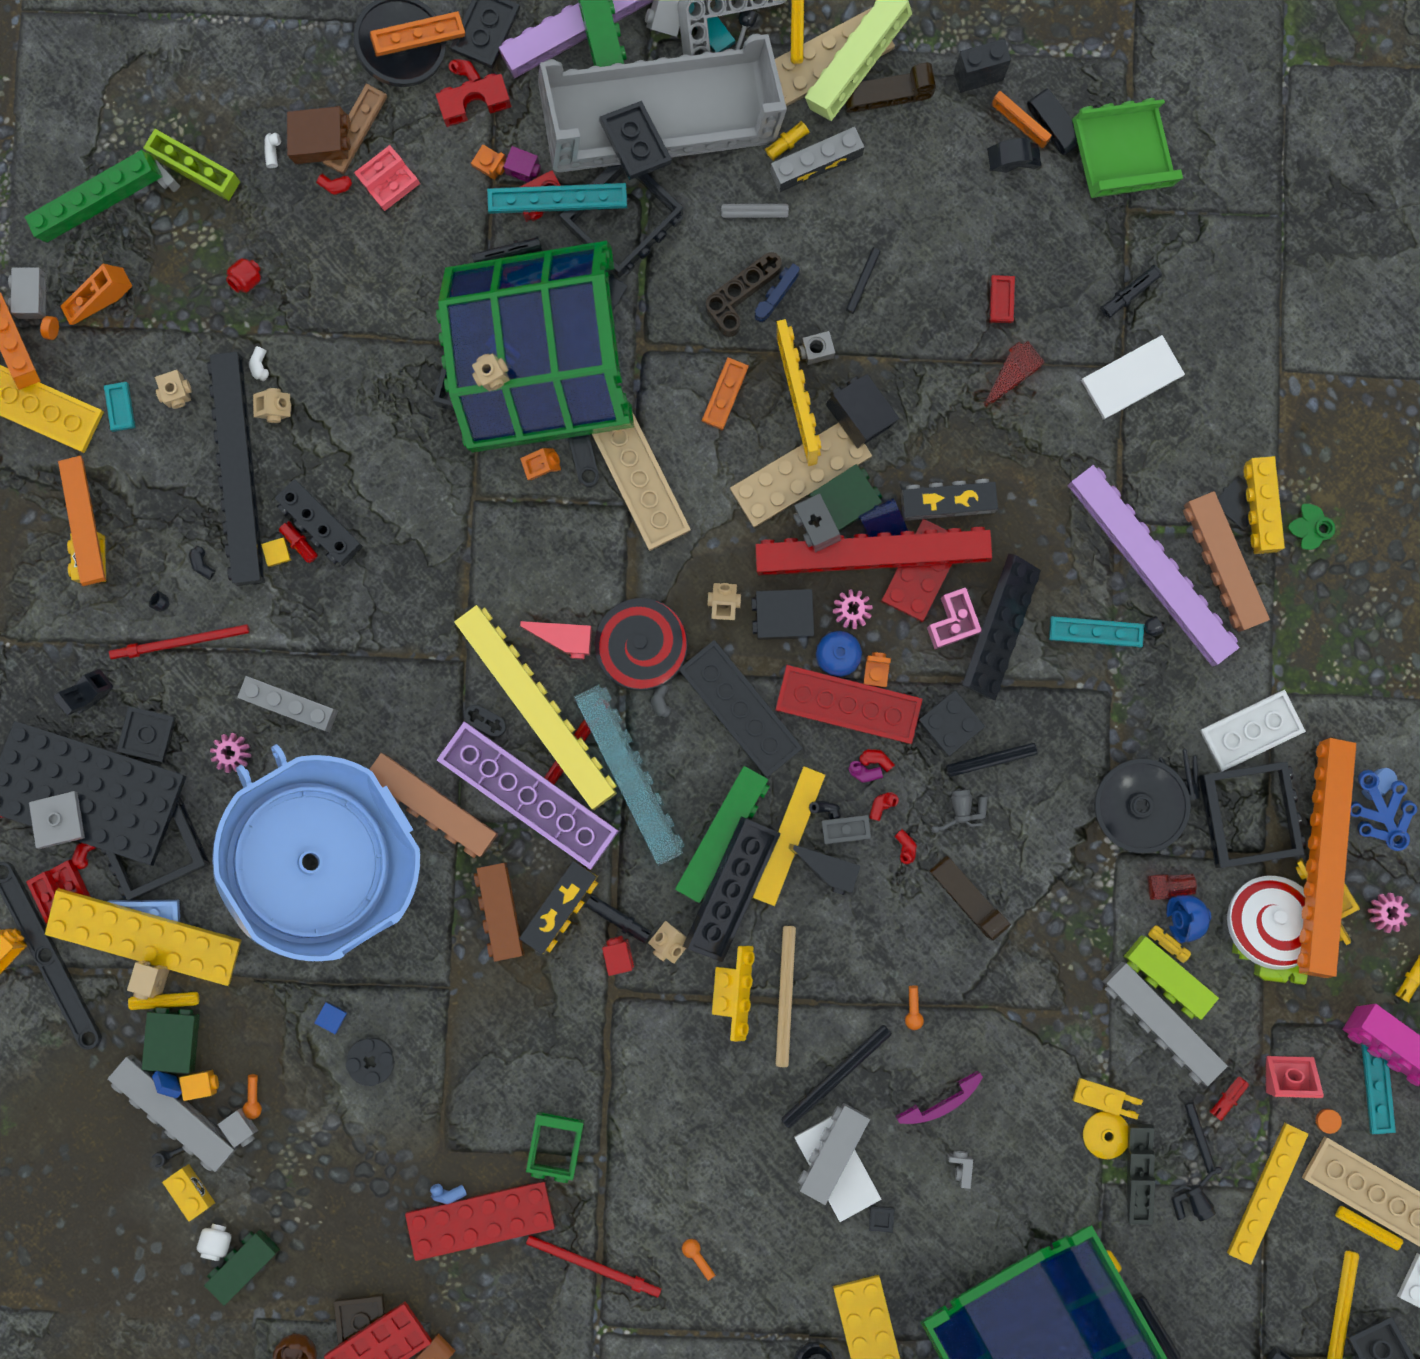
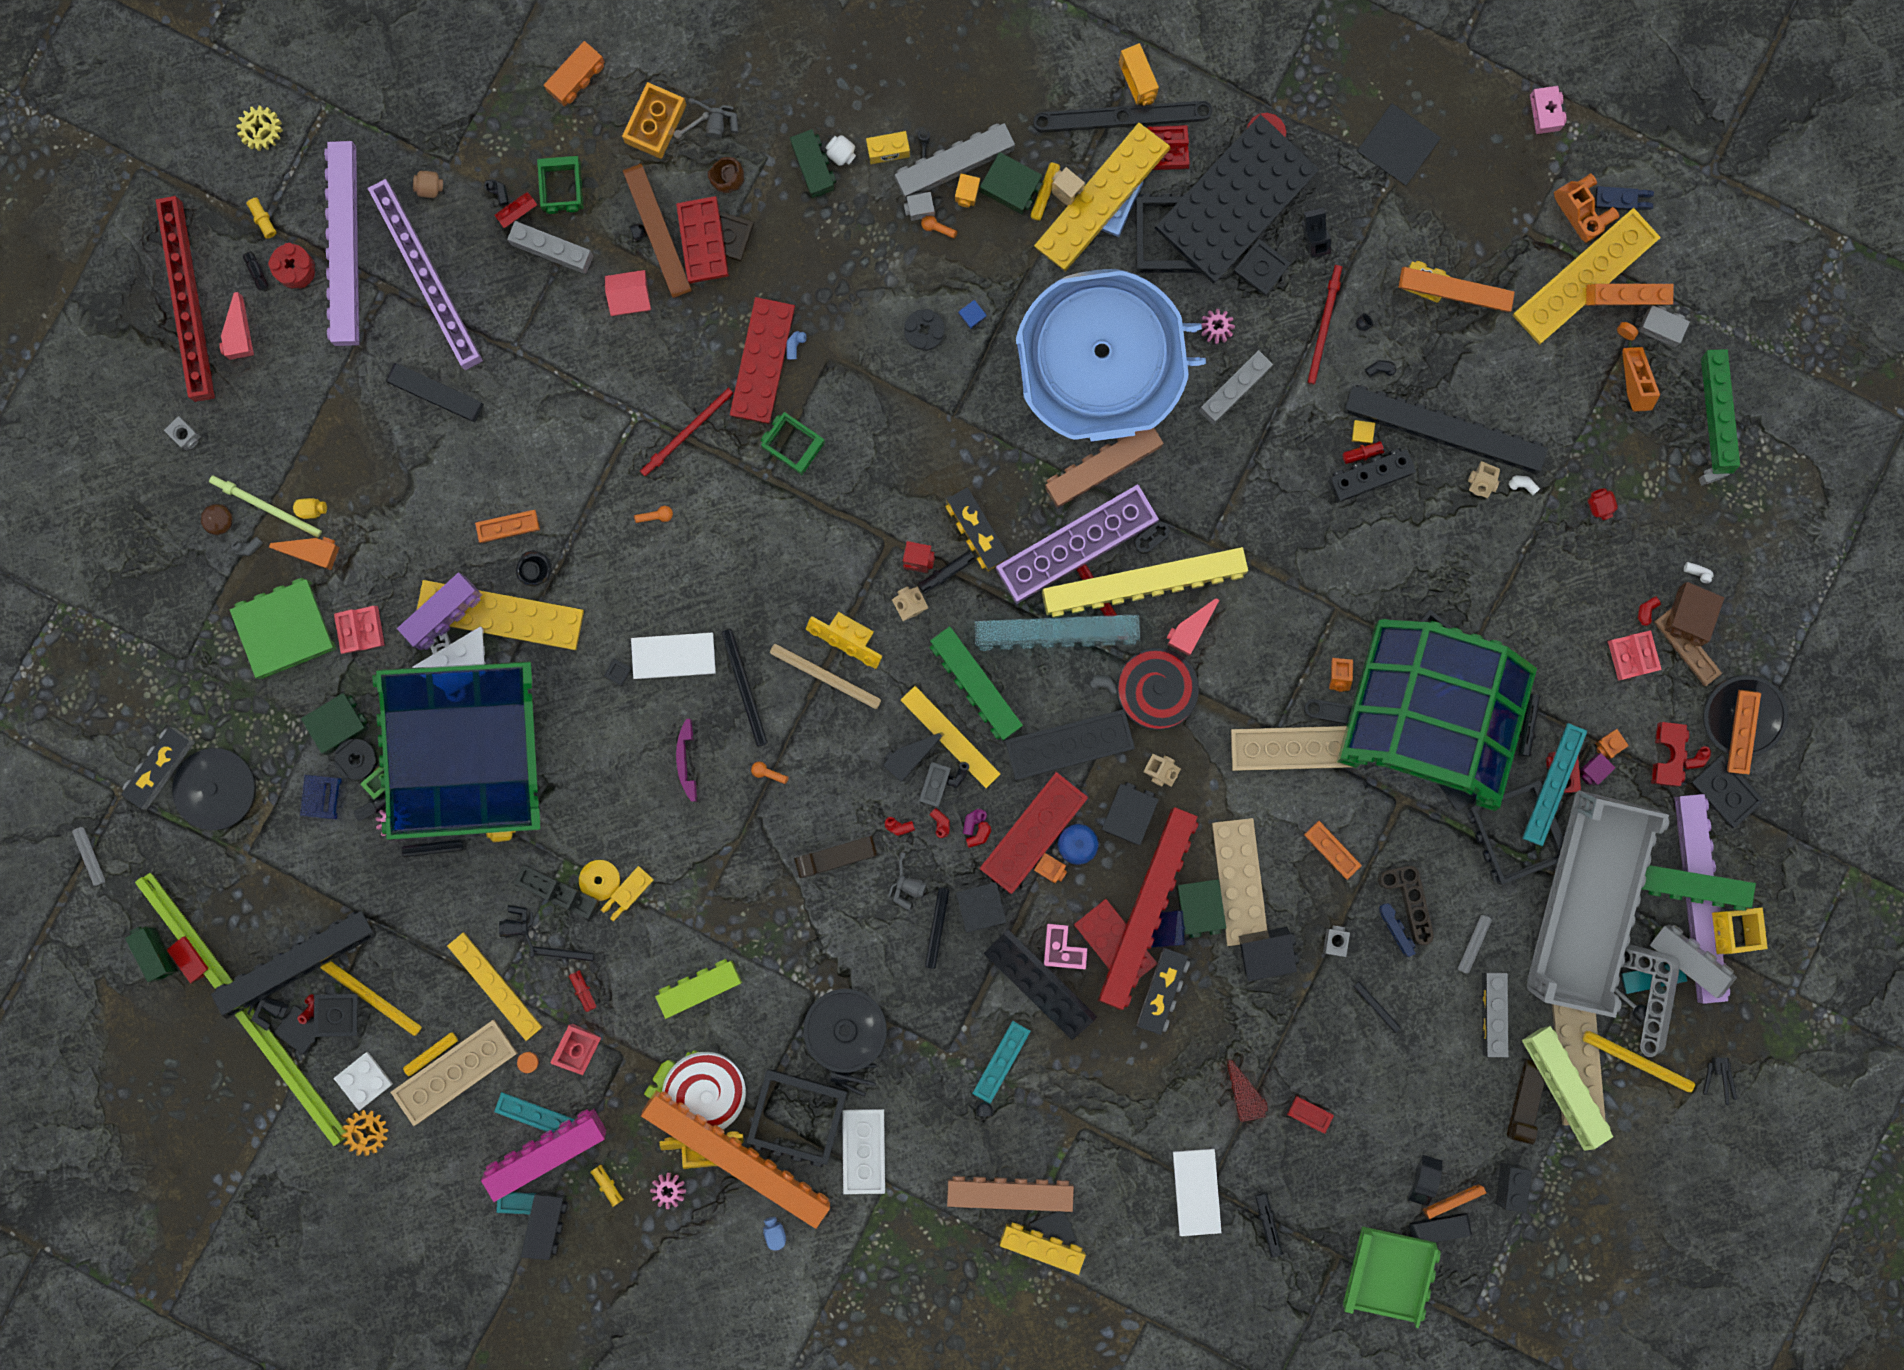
camera: 115 degrees right, 0 degrees up
(56, 820) = (1224, 169): light grey plate -> none
(80, 854) = (1187, 174): red arm -> none
(119, 406) = (1538, 359): teal tile -> none
(166, 1084) = (979, 166): blue tile -> none
(173, 389) = (1532, 407): tan brick -> none
(192, 164) = (1713, 501): lime brick -> none
(496, 377) = (1424, 665): tan brick -> none
(499, 911) = (995, 481): dark orange brick -> none
(635, 140) = (1573, 867): black plate -> none
(731, 889) = (929, 671): black plate -> none
(787, 140) = (1522, 997): yellow pin -> none
(800, 399) = (1311, 909): yellow plate -> none
(816, 510) = (1203, 875): dark grey brick -> none
(833, 1153) = (686, 657): light grey brick -> none
(844, 606) = (1105, 877): bright pink gear -> none
(963, 1172) = (624, 753): light grey bracket -> none
(1153, 565) = (1034, 1133): lavender brick -> none
(1165, 1024) = (663, 967): light grey brick -> none
(1166, 886) = (772, 1020): clear red piece -> none
(1169, 943) = (725, 1001): yellow axle -> none
(1189, 918) = (738, 1026): blue cylinder -> none
(1308, 527) = (1008, 1278): green plate -> none
(1385, 813) = (748, 1225): blue plant -> none

